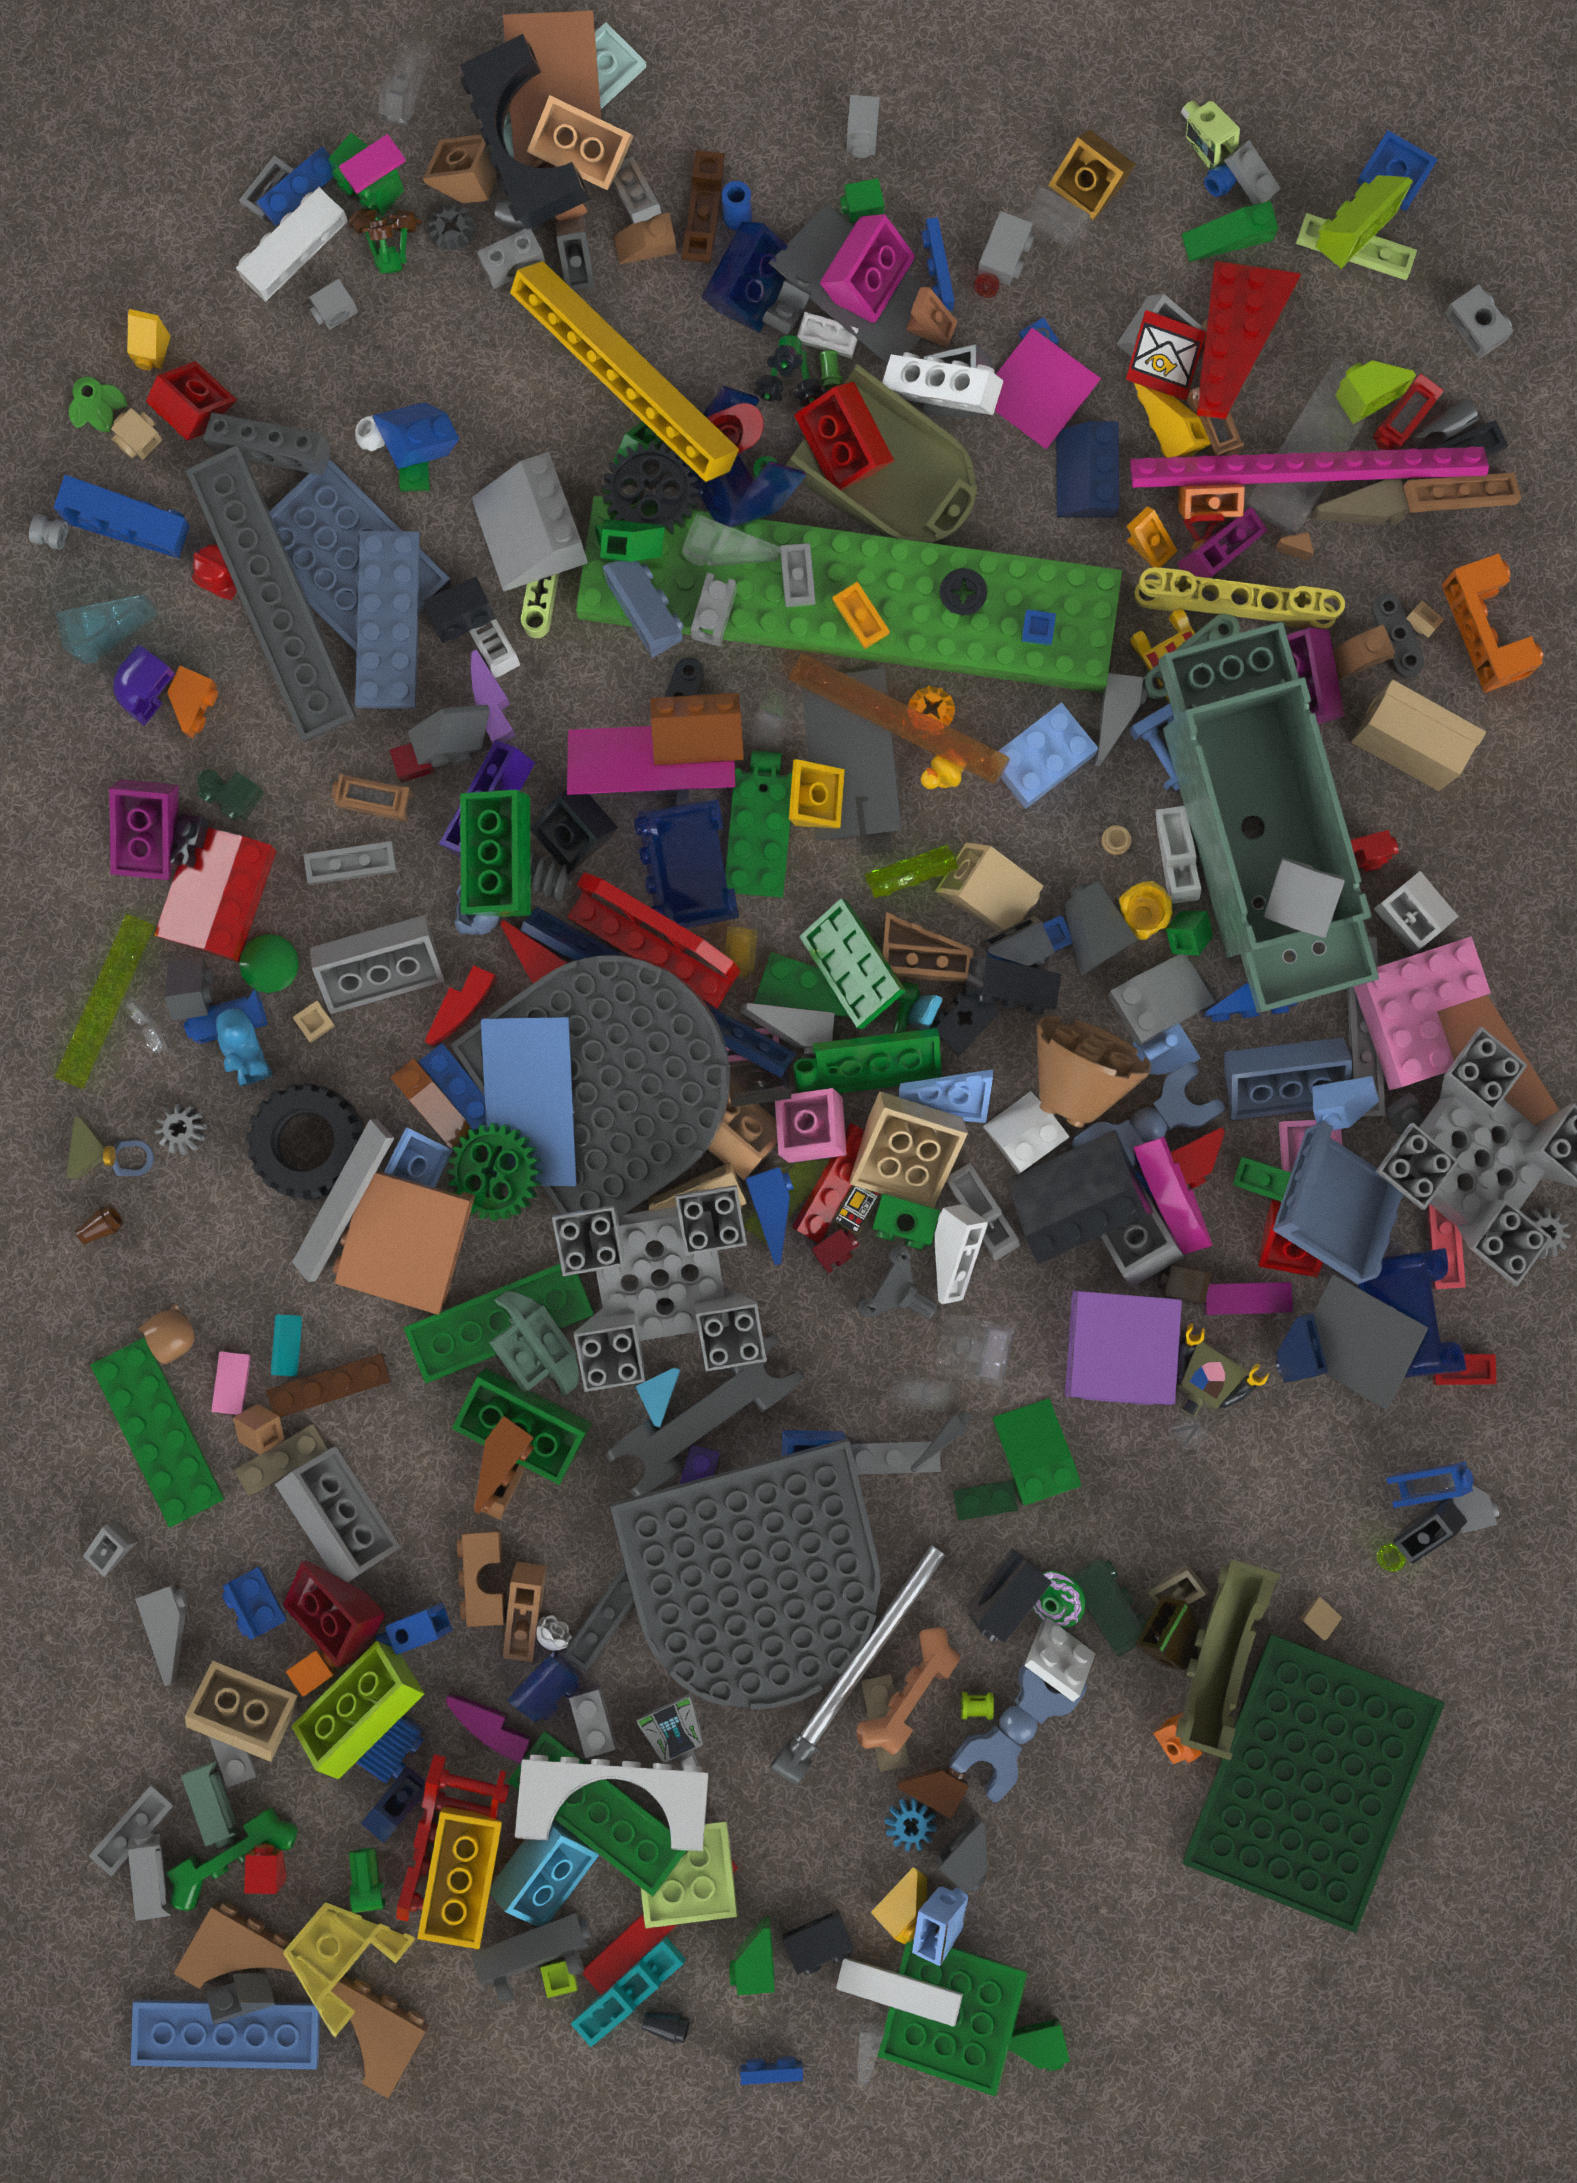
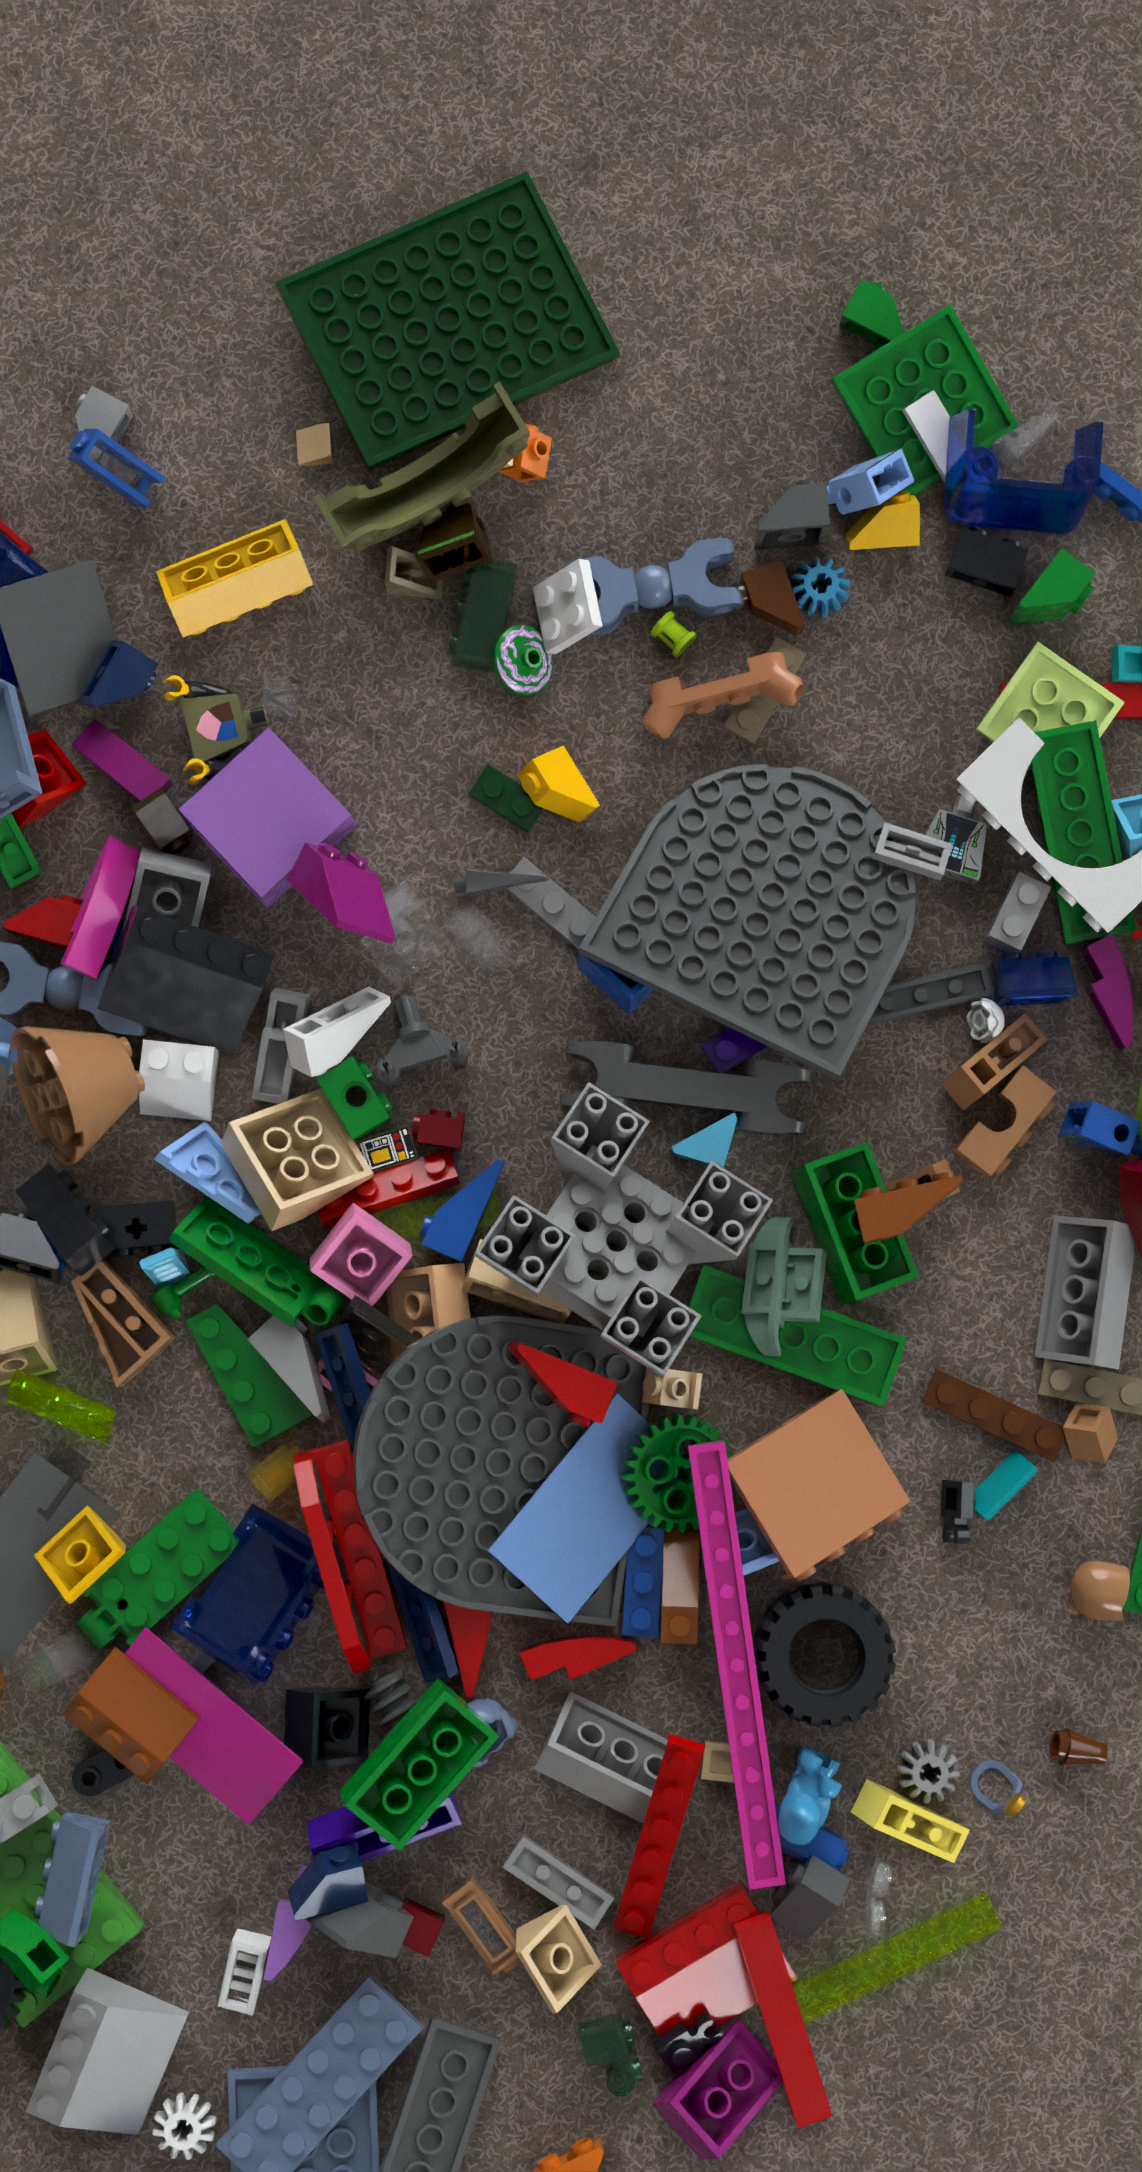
camera: 140 degrees left, 0 degrees up
(85, 1149) = (1030, 1832): olive slope -> none
(141, 902) = (782, 2019): none -> red tile
(166, 1088) = (909, 1821): none -> light yellow slope
(231, 1383) = (1080, 1497): bright pink tile -> none
(269, 963) = (713, 1854): green dish -> none
(302, 1307) = (957, 1506): none -> black plate
(312, 818) = (556, 1956): none -> tan slope
(312, 942) = (659, 1836): none -> red plate
(343, 1200) = (837, 1568): light grey tile -> none
(355, 1086) = (736, 1664): none -> dark pink plate
(449, 514) = (170, 2118): none -> white gear
(459, 610) = (245, 2033): black brick -> none
(486, 737) = (329, 1883): none -> dark blue slope
(531, 609) = (179, 1971): yellowish green beam -> none
(539, 1223) = (674, 1389): none -> tan brick
(607, 1161) = (568, 1386): none -> red slope
(689, 1689) = (909, 856): none -> light grey tile
(794, 1758) = (871, 728): flat silver piece -> none
(852, 963) = (190, 1368): plate -> none
(859, 1979) = (983, 500): none -> clear blue windscreen
(960, 1537) = (558, 785): none -> yellow slope
(1007, 1597) = (564, 688): black arch -> none
(1029, 1341) = (343, 890): none -> magenta slope
(1036, 1452) = (426, 797): green slope -> none
(1289, 1483) = (234, 578): none -> yellow slope
(1387, 1548) = (203, 451): clear neon green bush -> none
(1430, 1530) = (153, 430): black brick -> none

